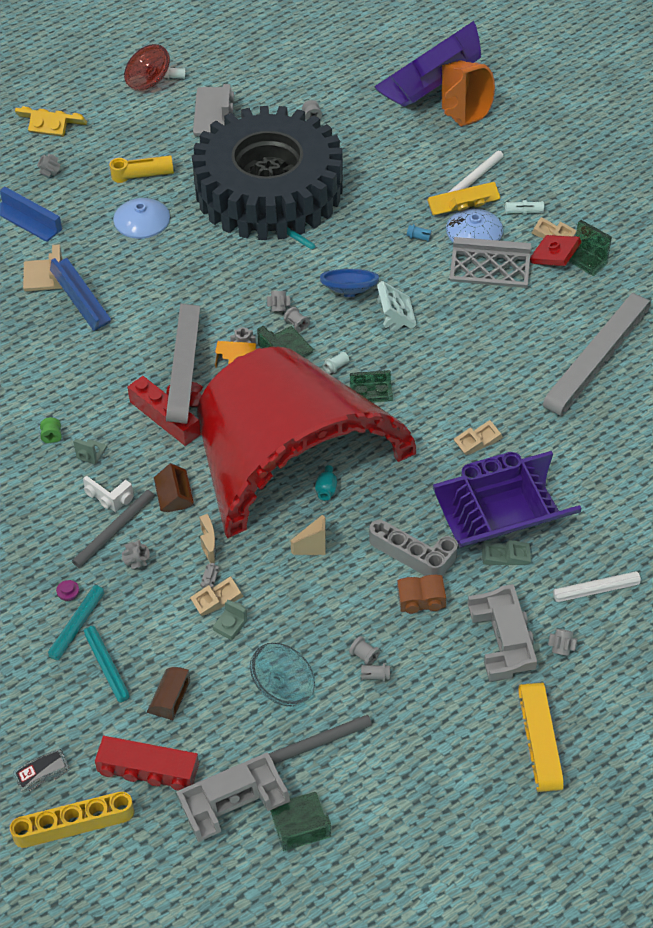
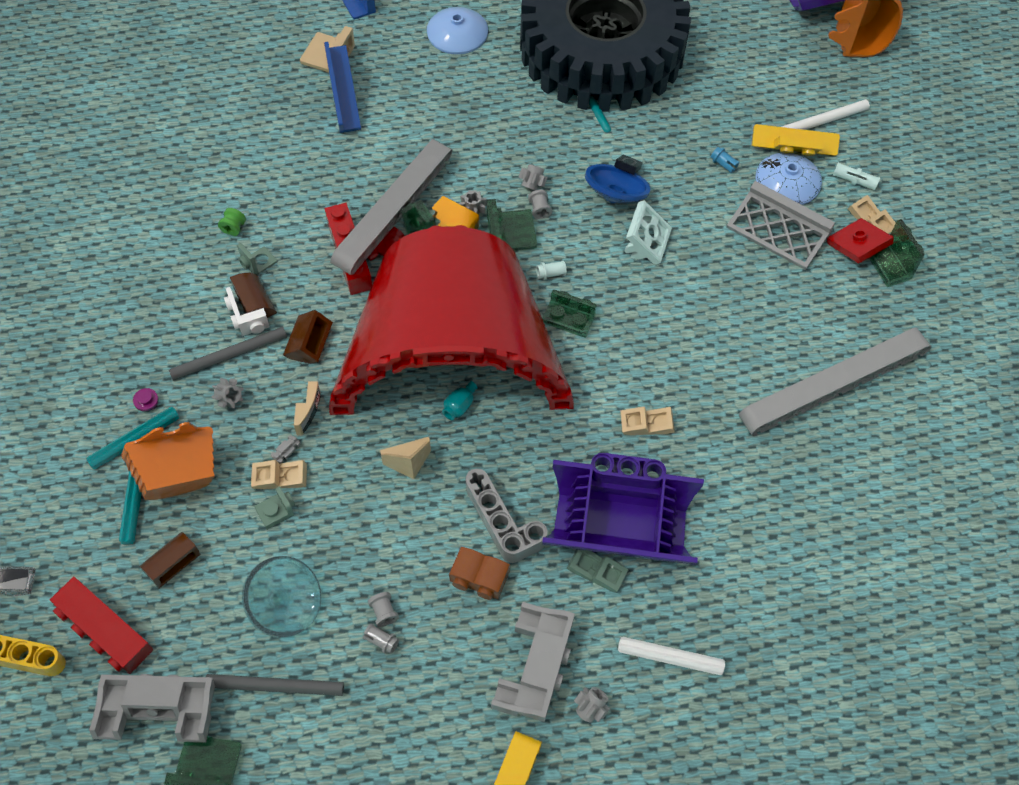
camera: 25 degrees right, 10 degrees up
(103, 475) = (252, 293): none -> reddish brown brick
(130, 616) = (171, 461): none -> orange piece
(211, 363) = (417, 217): none -> clear green bracket
(347, 264) = (628, 164): none -> black tile

